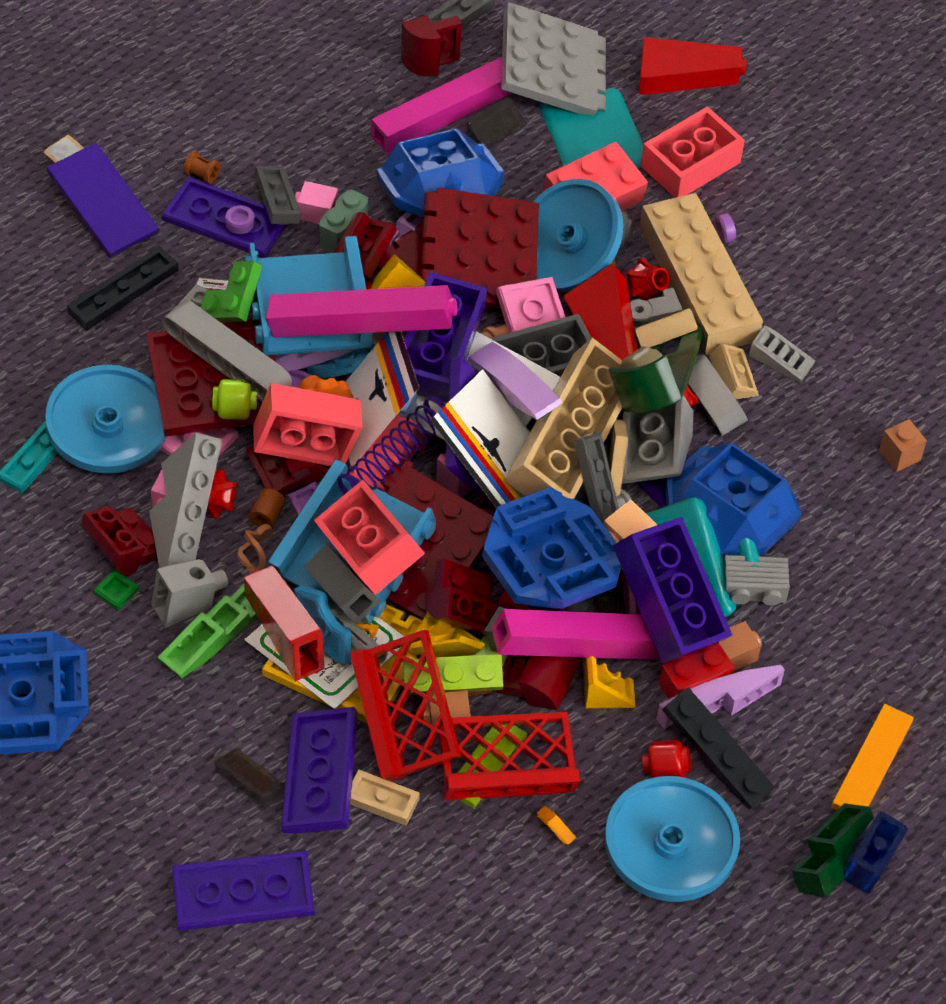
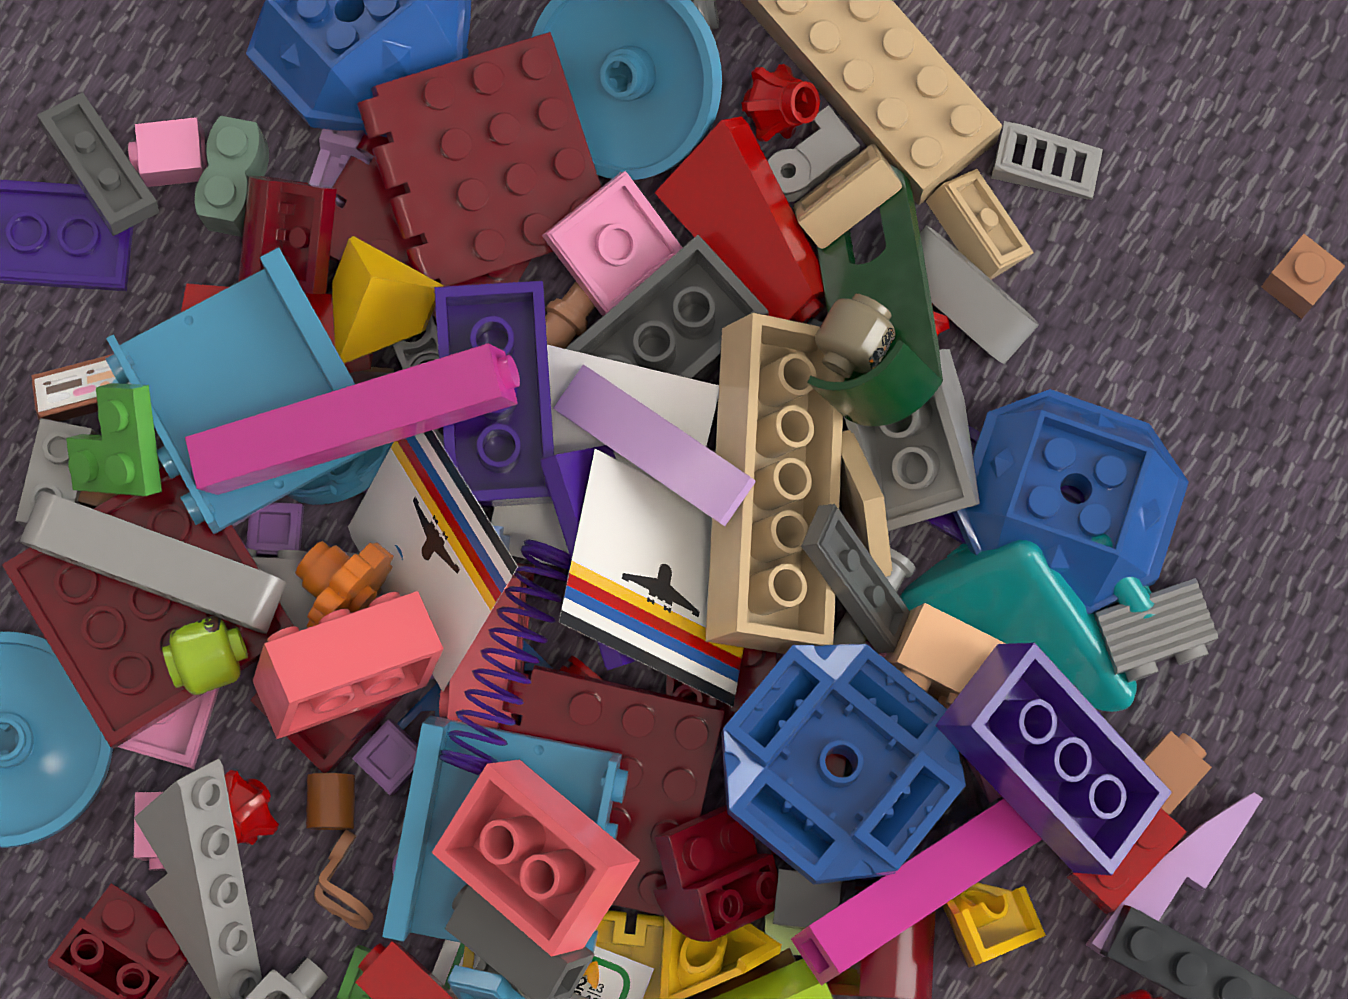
camera: 15 degrees left, 25 degrees up
(240, 219) = (55, 238): medium lavender tile -> none

